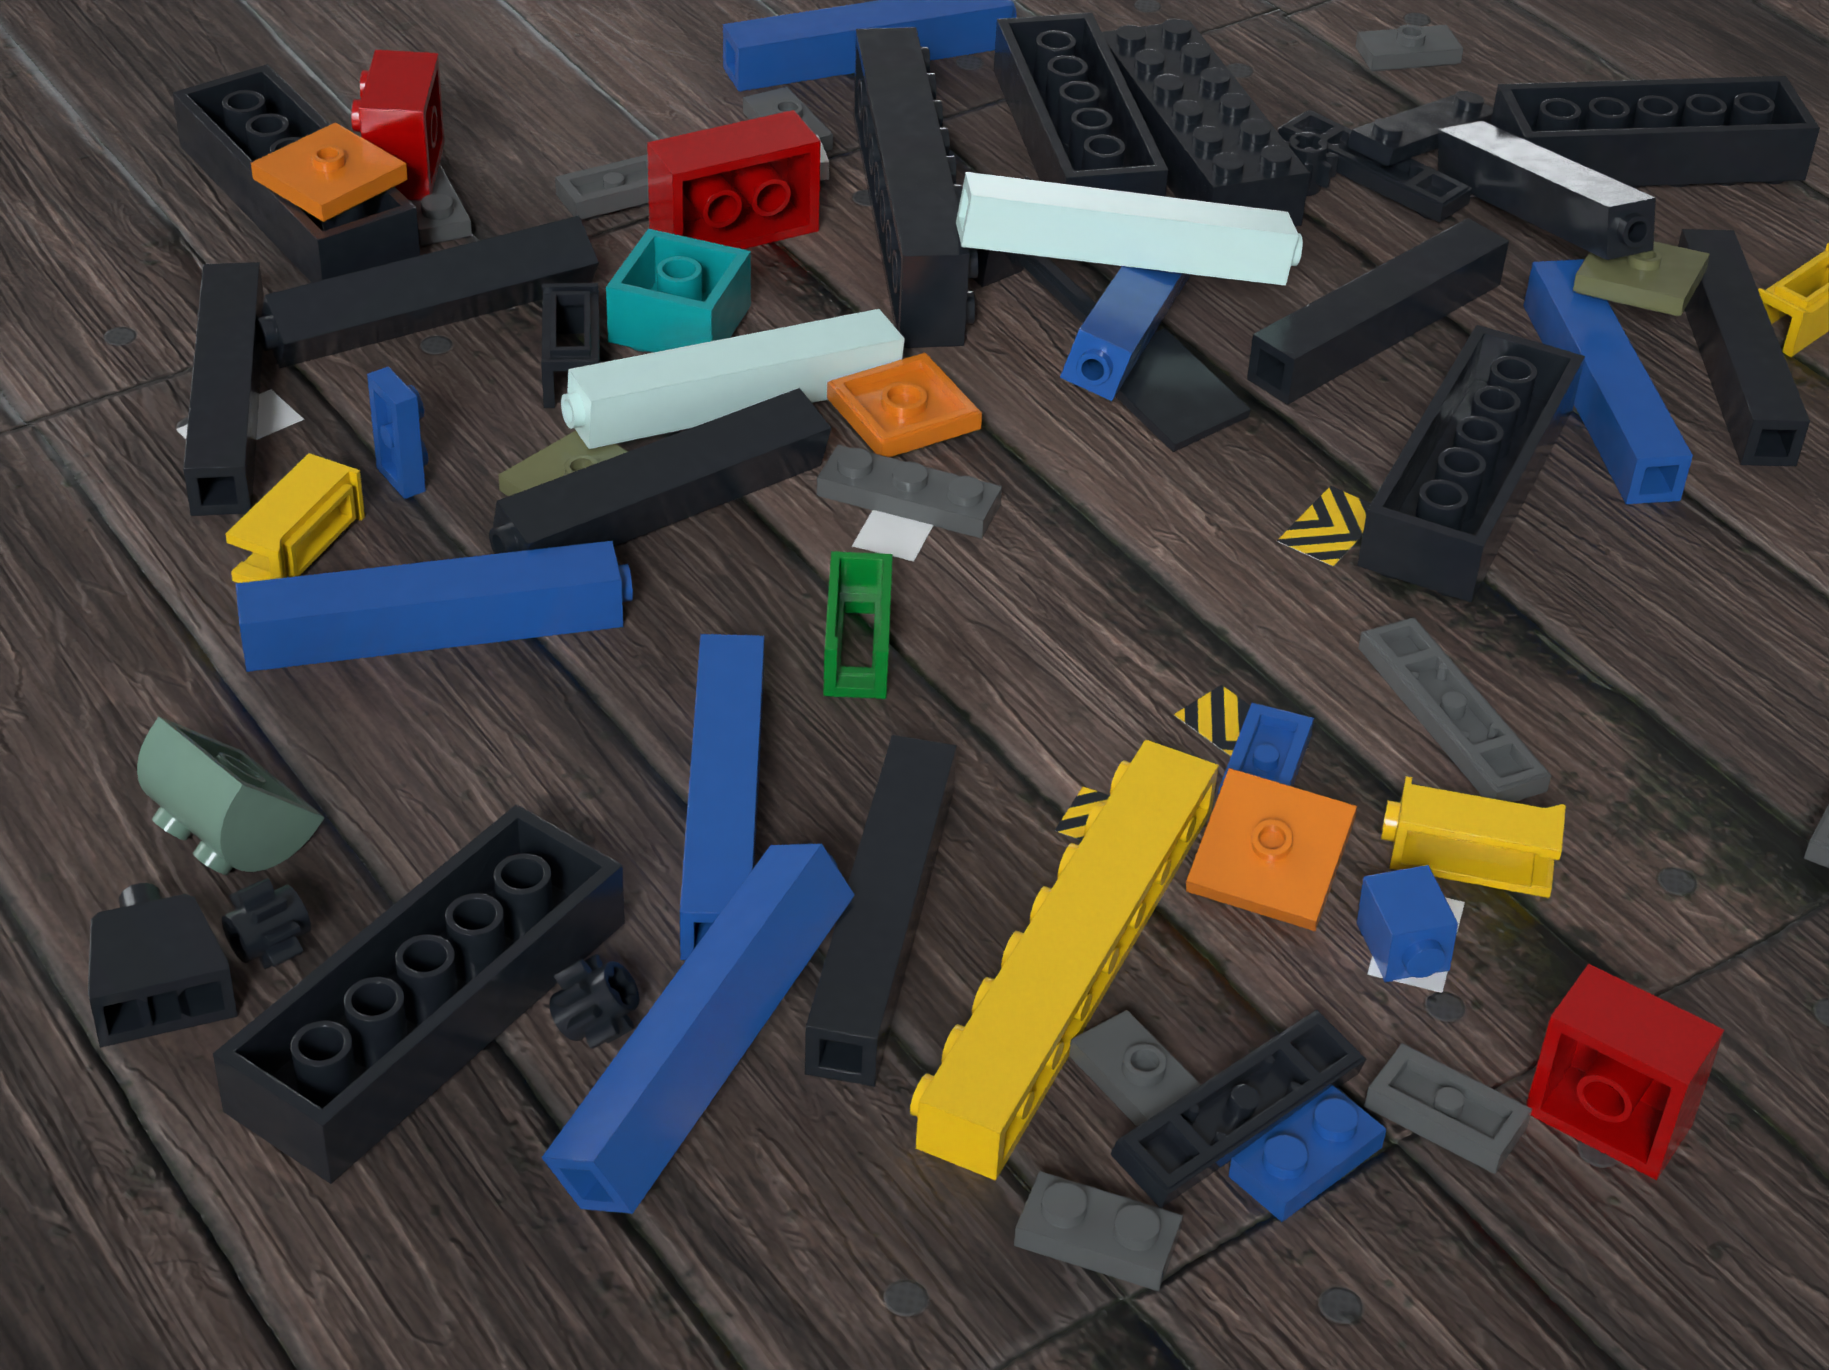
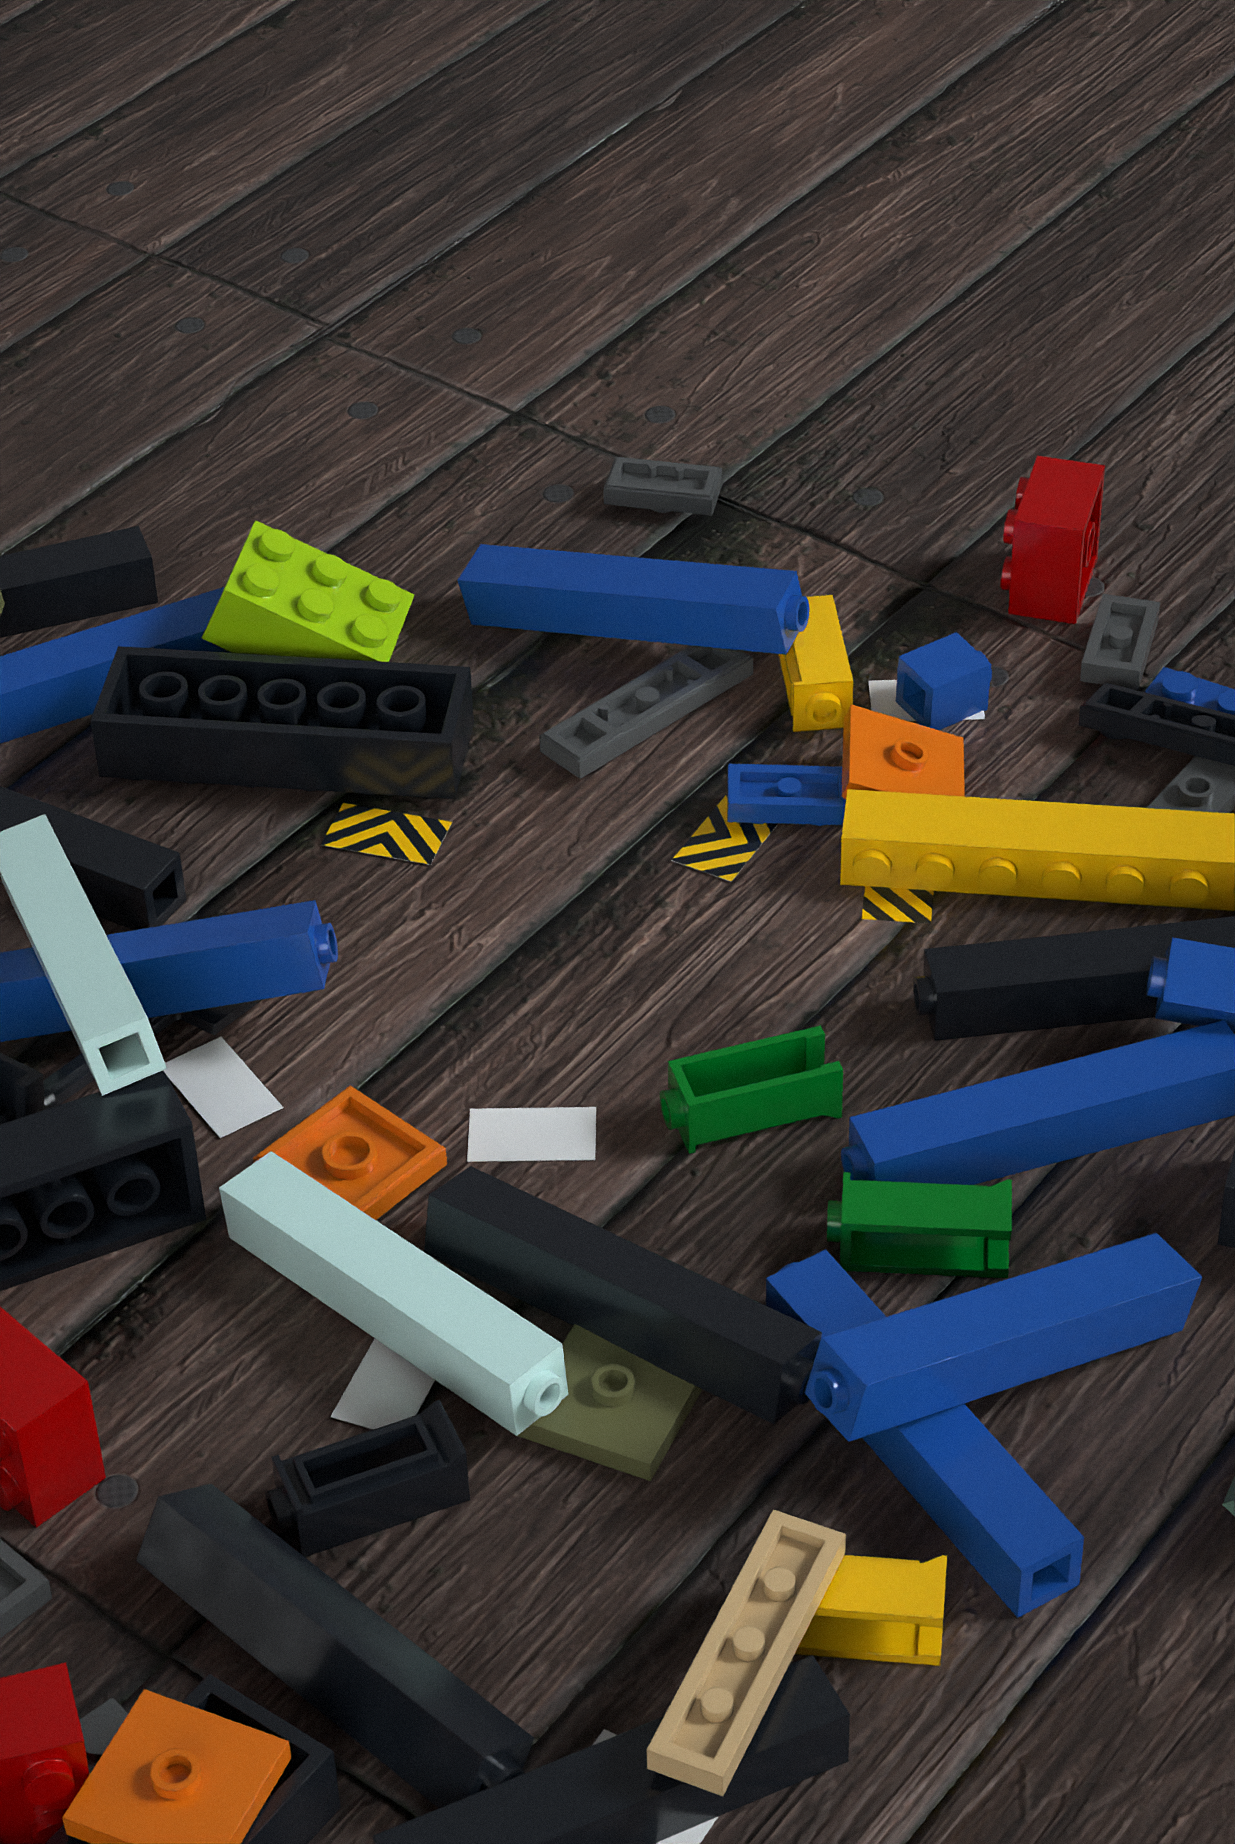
camera: 105 degrees left, 0 degrees up
(256, 418) = (746, 1653): none -> tan plate
(396, 431) = (672, 1533): blue plate -> none
(453, 639) = (1000, 1336): none -> blue brick
(638, 673) = (922, 1227): none -> green window
(677, 293) = (247, 1384): teal brick -> none
(909, 491) = (493, 1113): dark grey plate -> none
(1030, 380) = (221, 1087): none -> white sticker
(1588, 703) = (635, 598): none -> blue brick
(1614, 481) = (305, 604): none -> lime brick

